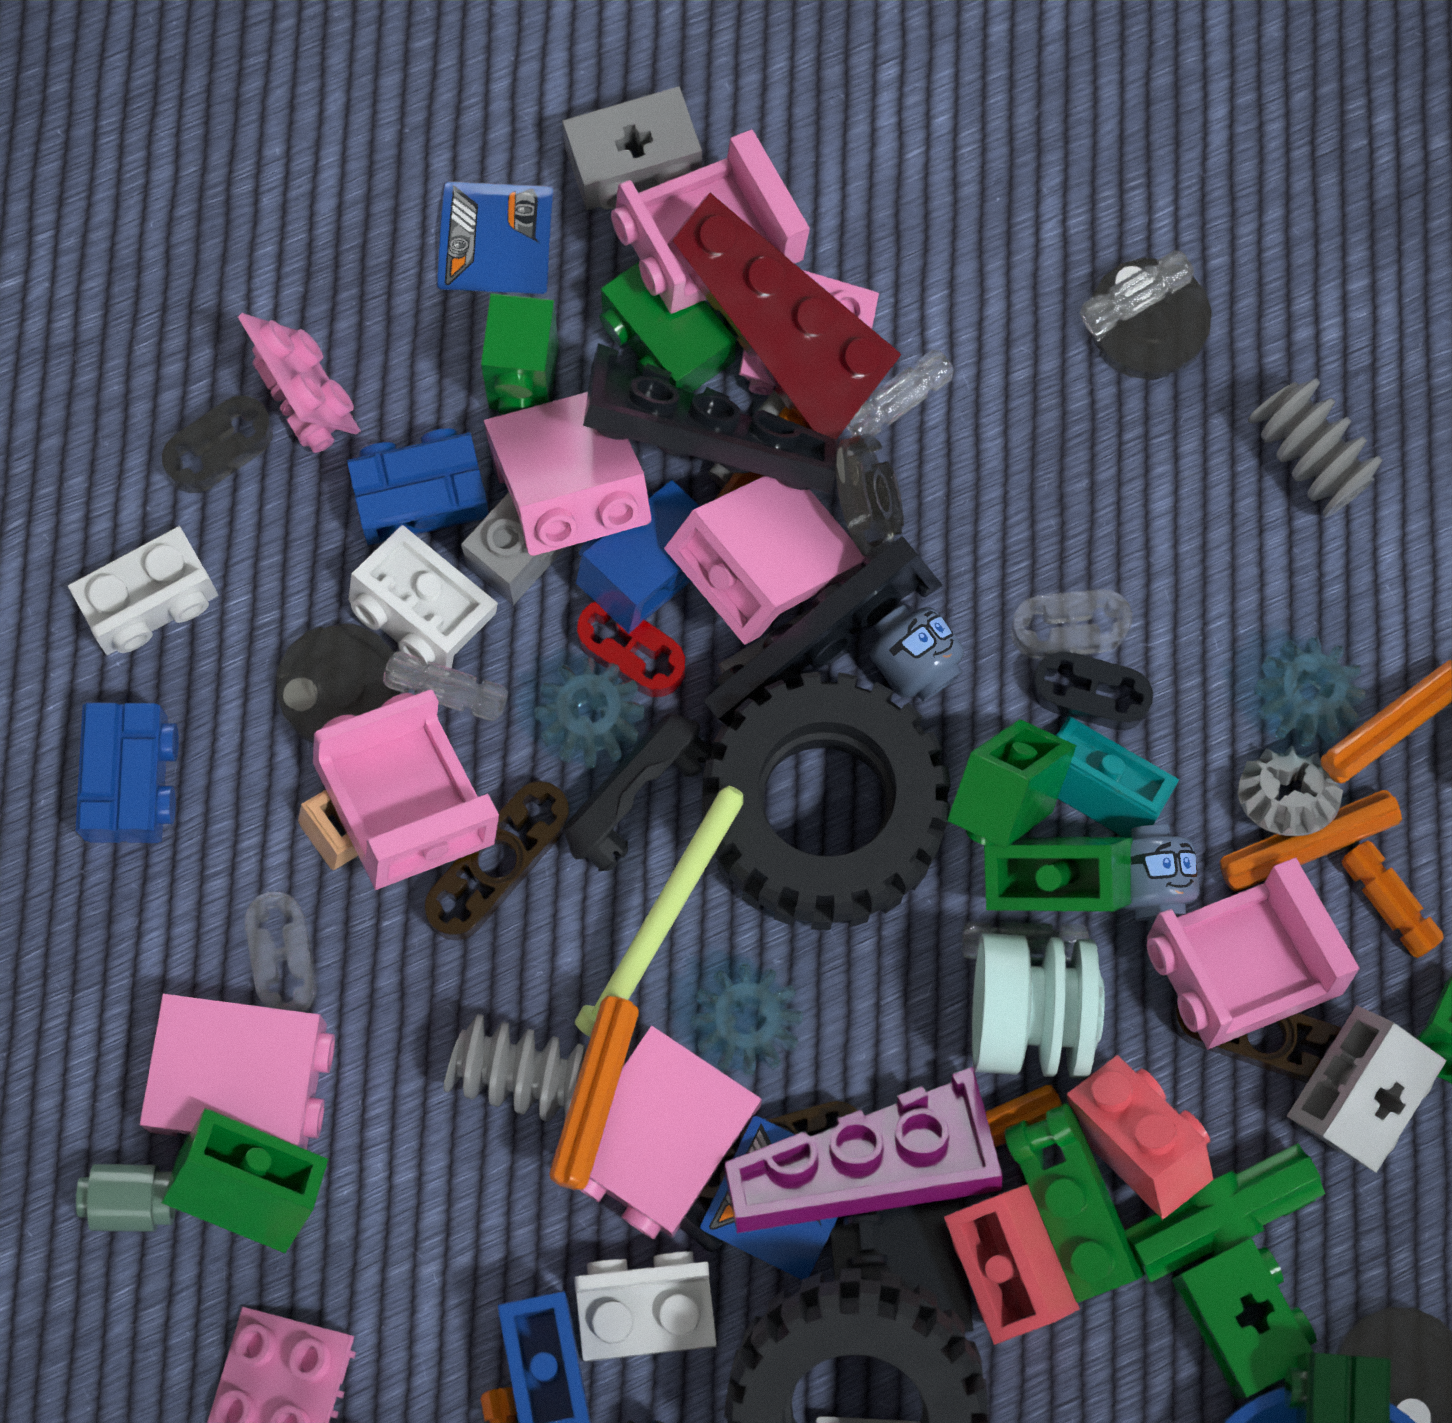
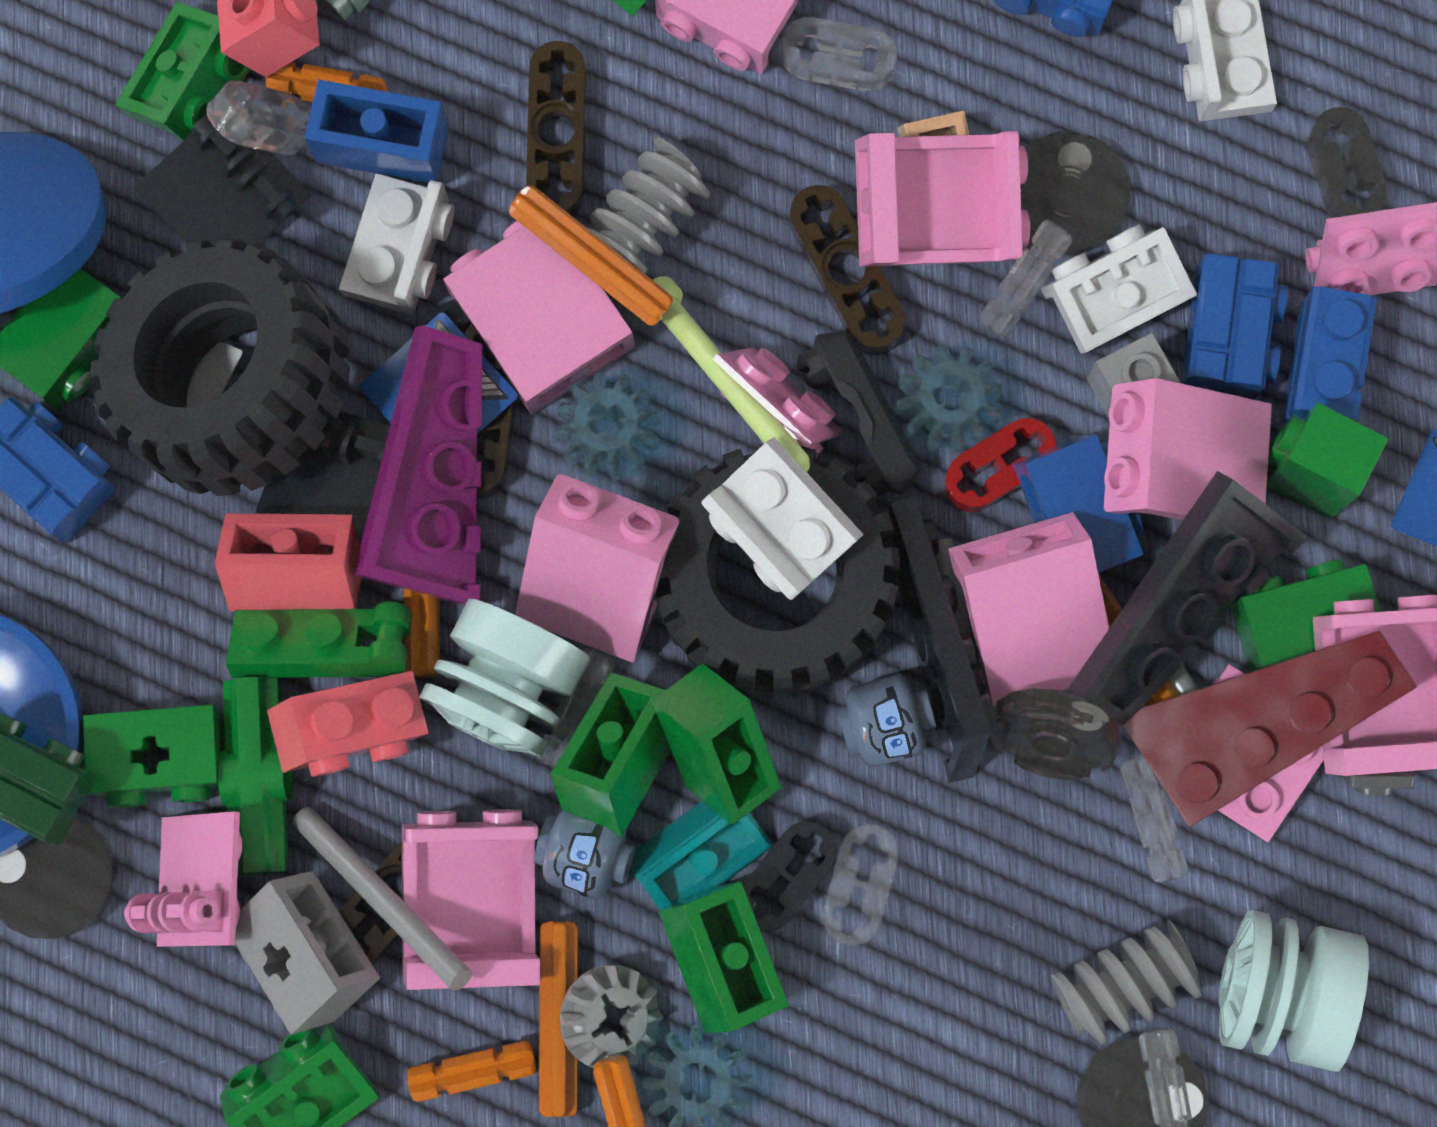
camera: 120 degrees right, 5 degrees up
(417, 390) = (1329, 352): none -> blue brick
(425, 1231) = (573, 89): none -> dark brown beam
(662, 845) = (764, 377): none -> bright pink hinge
(792, 790) = (780, 519): none -> white bracket
(897, 956) = (595, 567): none -> bright pink panel
(1005, 218) = (1307, 993): none -> light aqua wheel
(1056, 360) = (1127, 983): none -> light grey piece
(1195, 708) = (723, 958): none -> green brick
(1284, 1036) = (382, 899): none -> light grey bar
(1349, 1221) = (196, 883): none -> bright pink hinge

